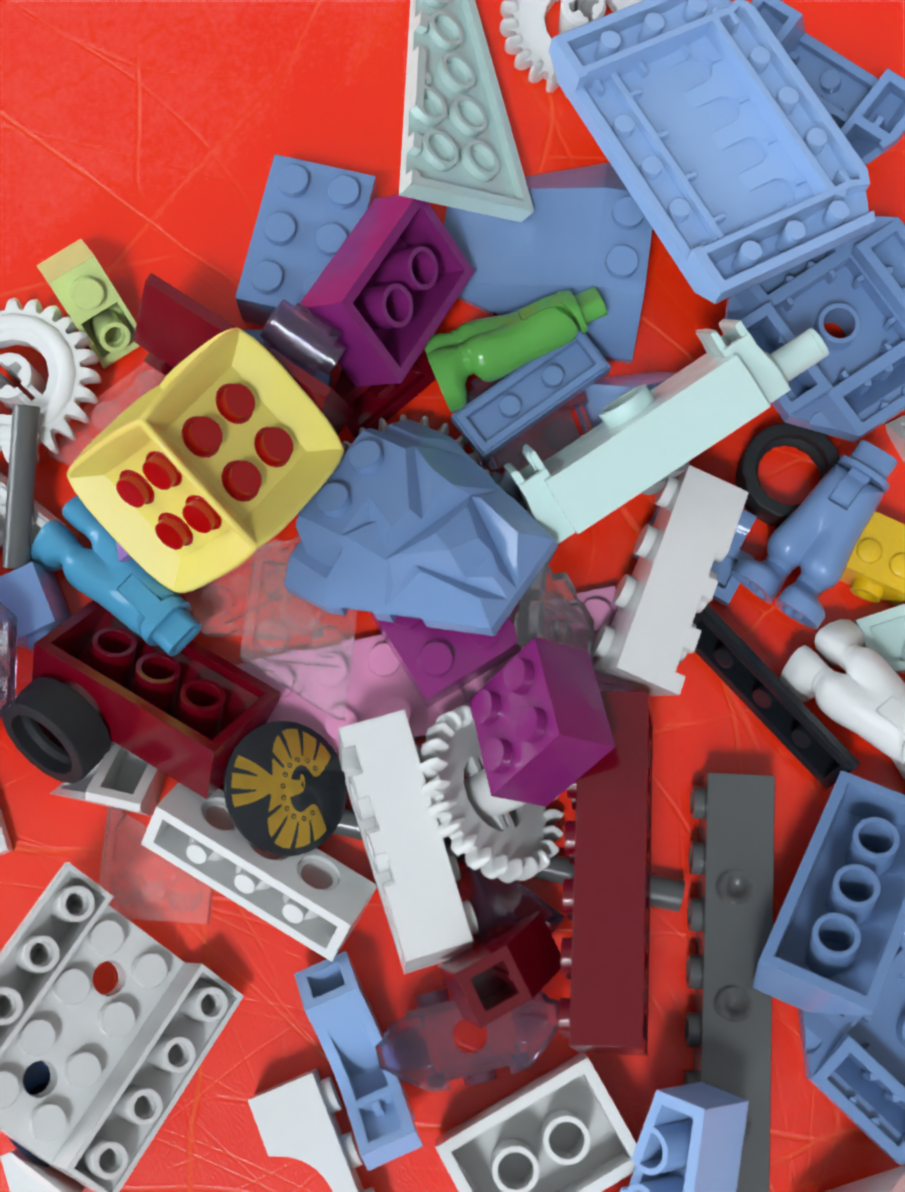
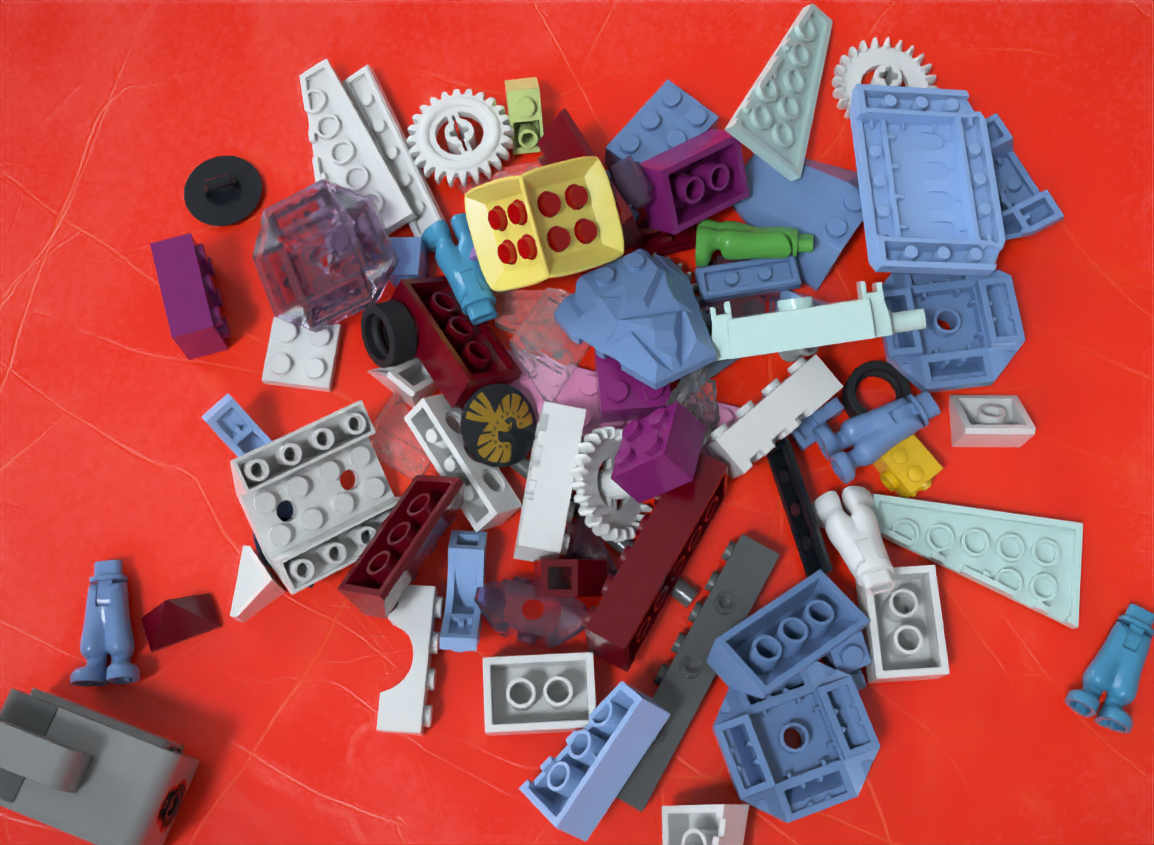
camera: 25 degrees right, 5 degrees down
(21, 486) = (436, 193): dark grey piece -> none
(235, 1043) = (403, 544): none -> dark red slope

